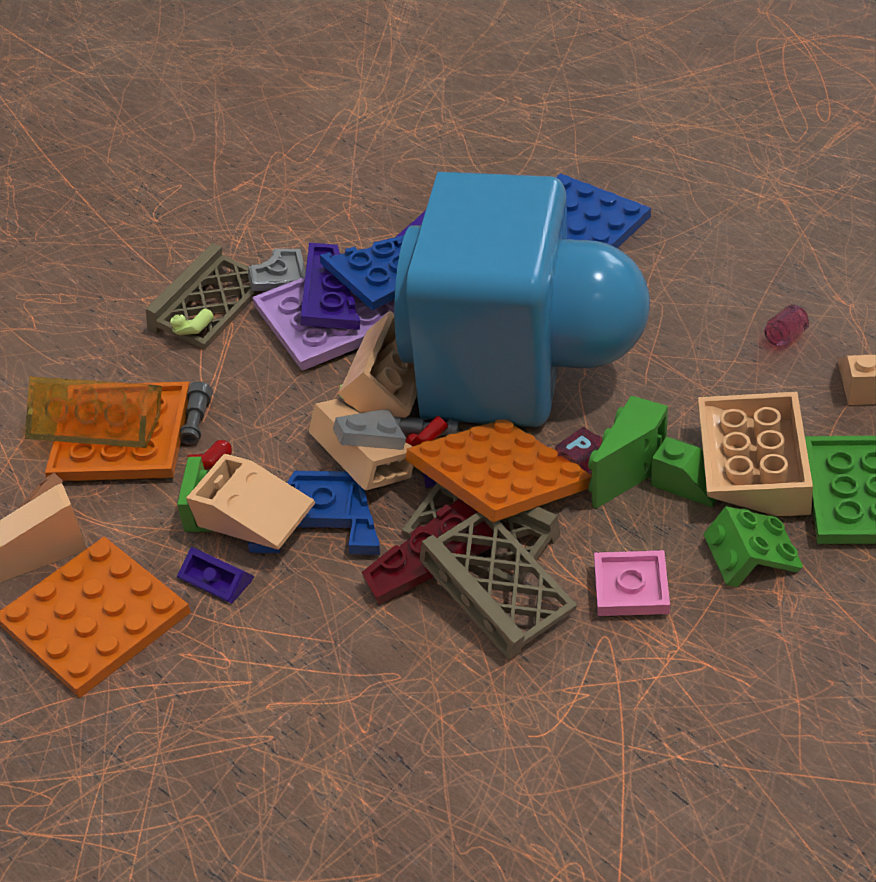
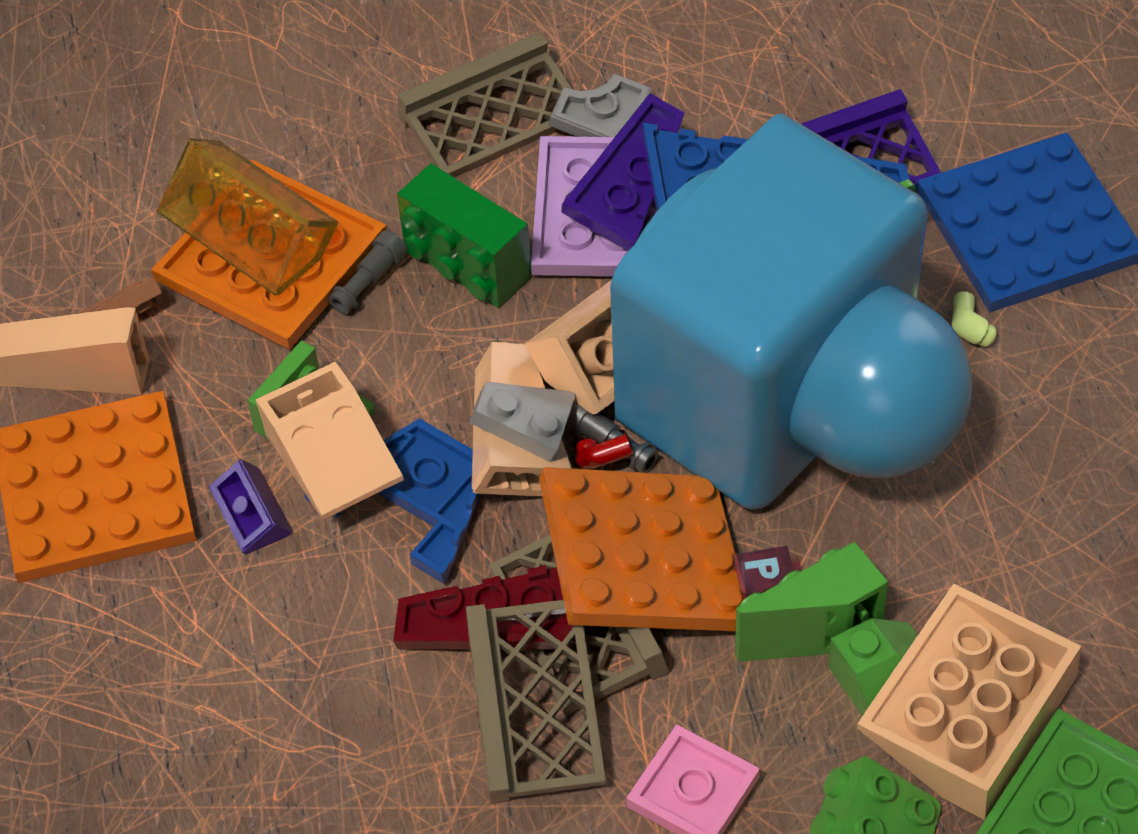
camera: 30 degrees right, 10 degrees up
(195, 326) = (442, 145): yellowish green arm -> none
(214, 453) = (349, 346): red arm -> none
(249, 360) = (464, 235): none -> green brick

